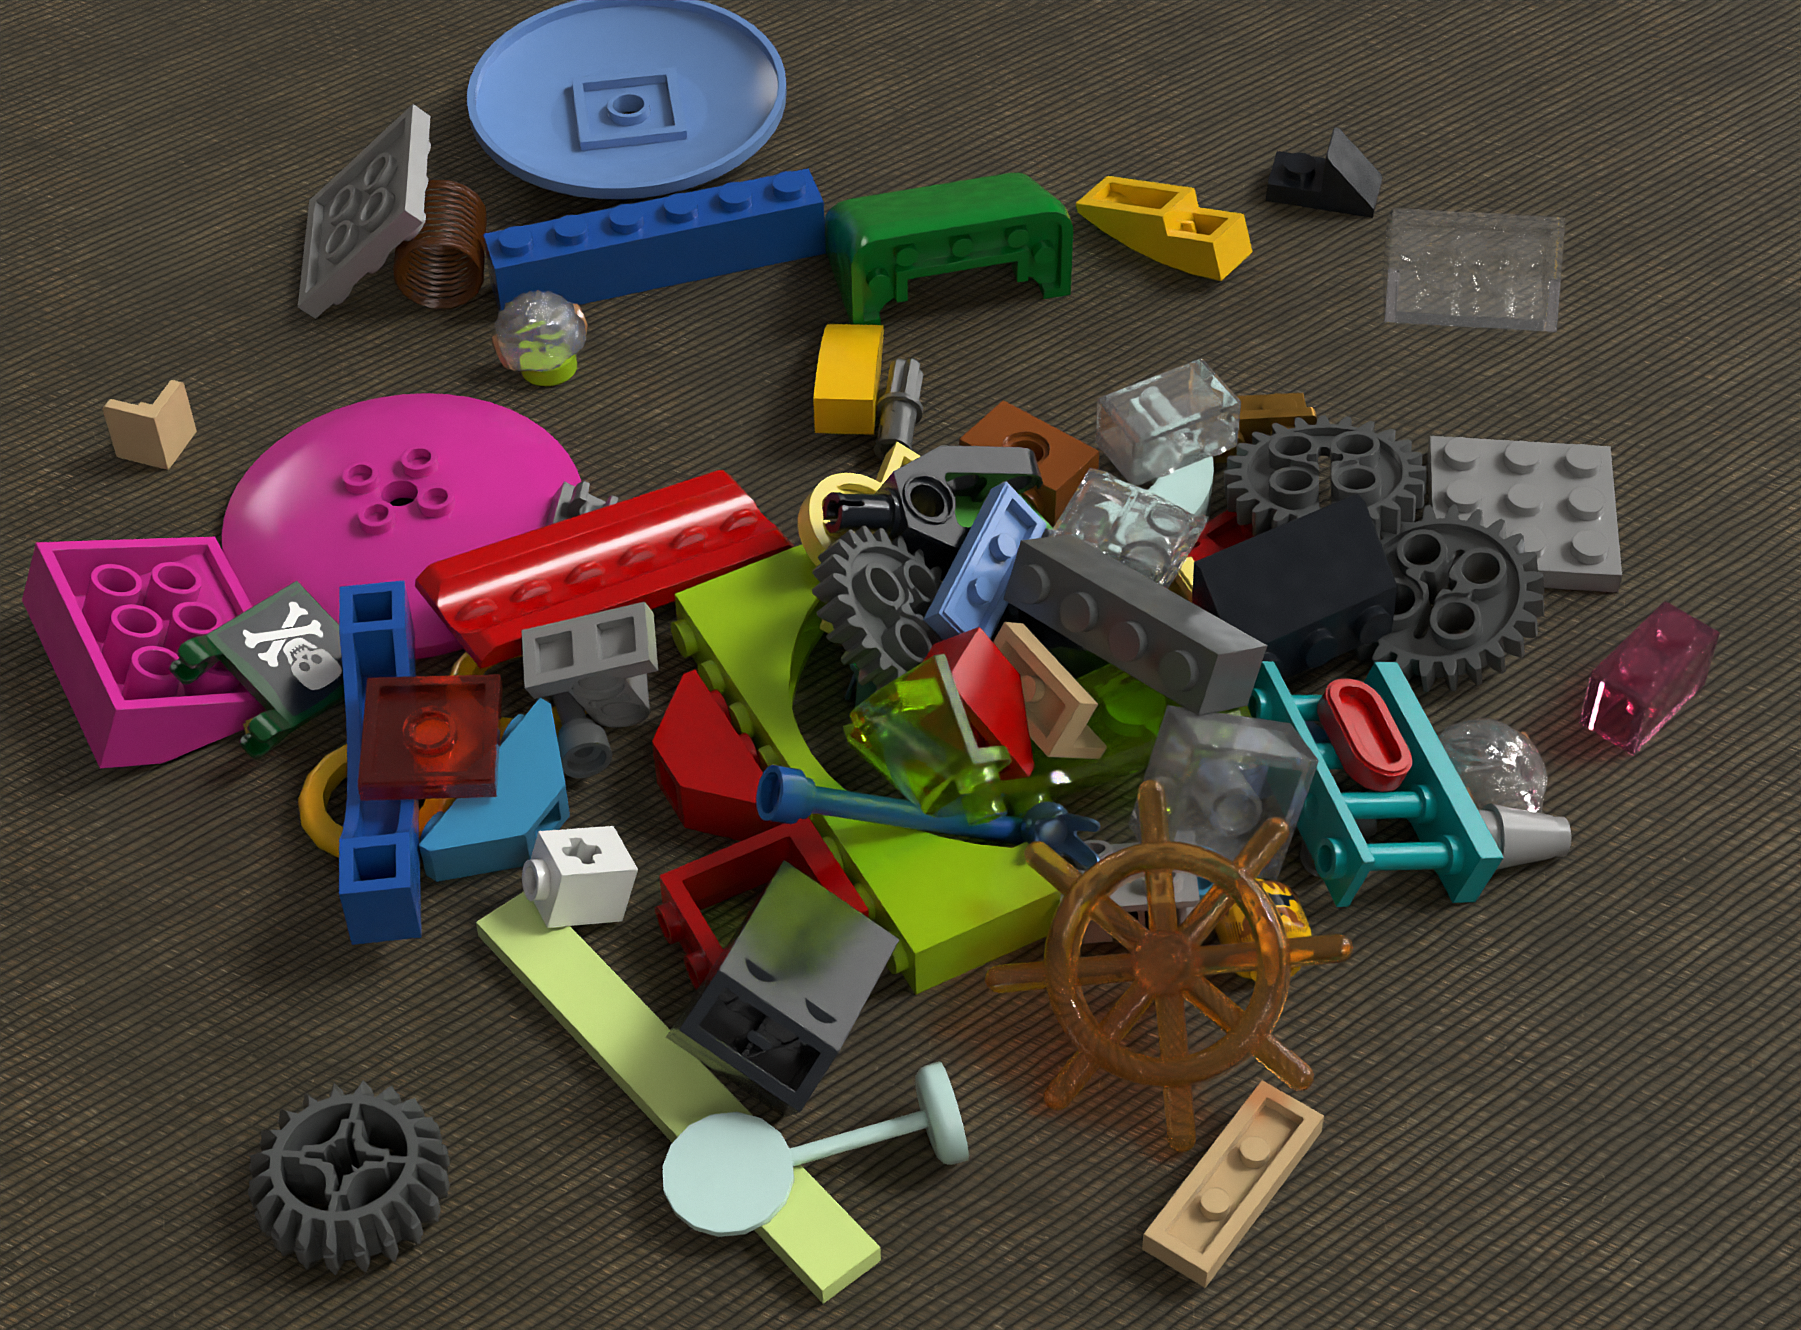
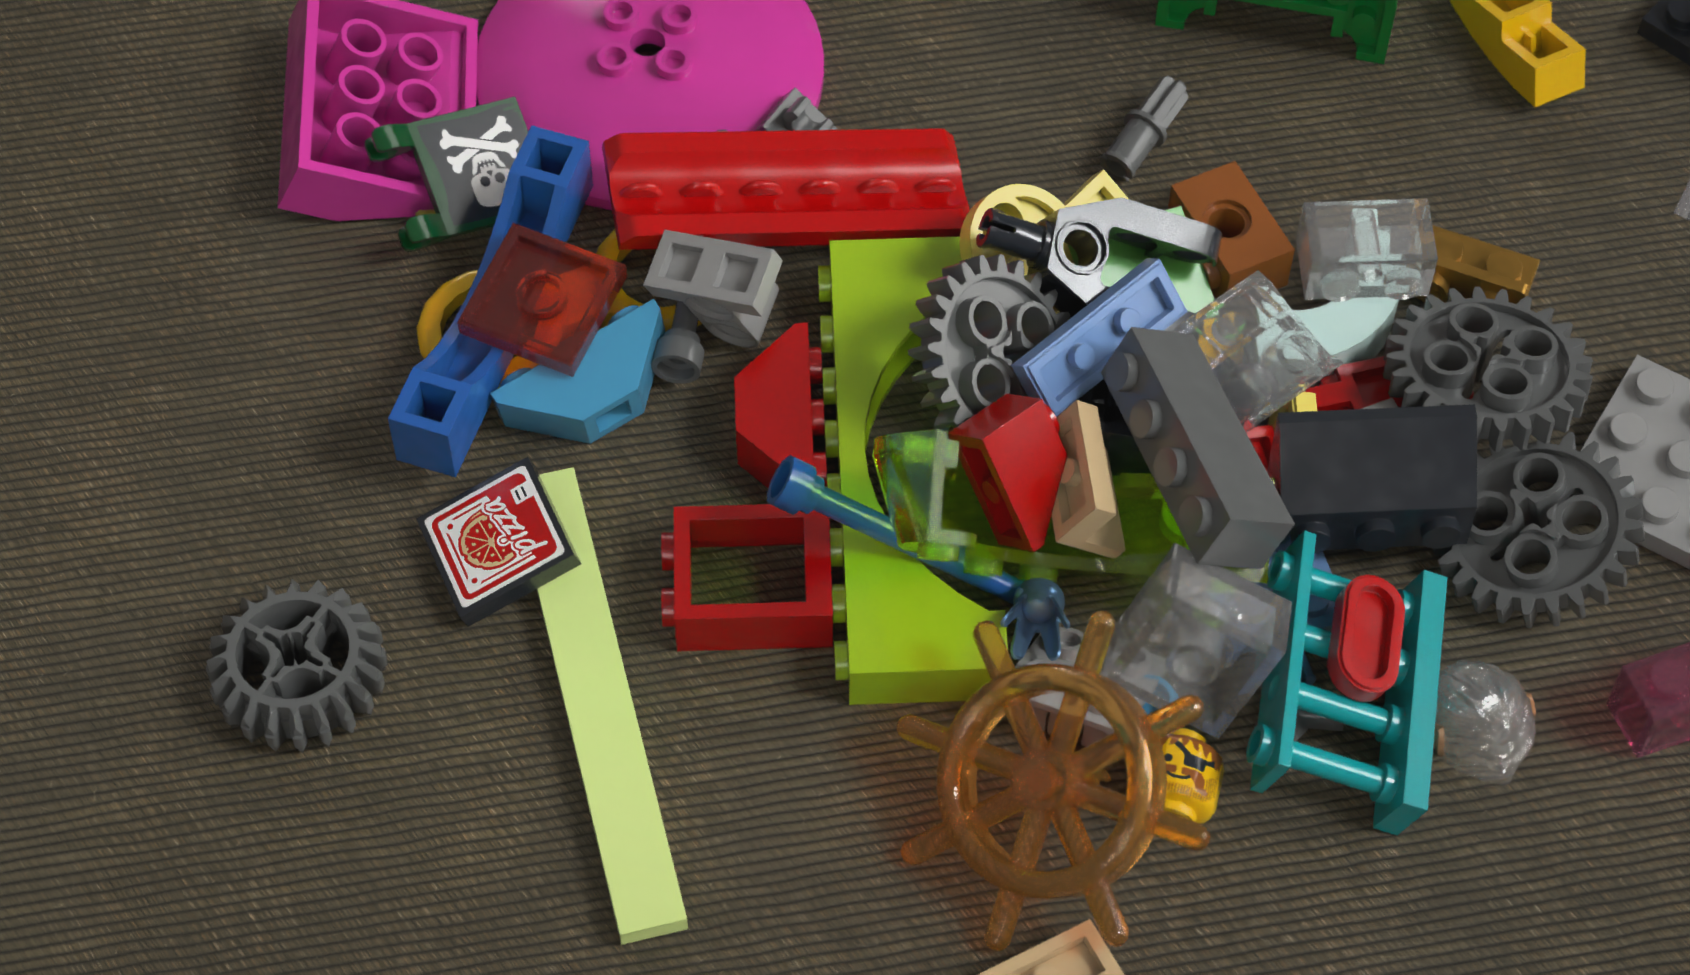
camera: 25 degrees right, 10 degrees up
(495, 980) = (498, 541): none -> tile
(579, 876) = (611, 477): white brick -> none
(738, 1170) = (605, 797): light aqua piece -> none
(785, 991) = (719, 659): slope -> none
(848, 379) = (1114, 75): yellow slope -> none
(1526, 834) = (1469, 793): light grey cone -> none

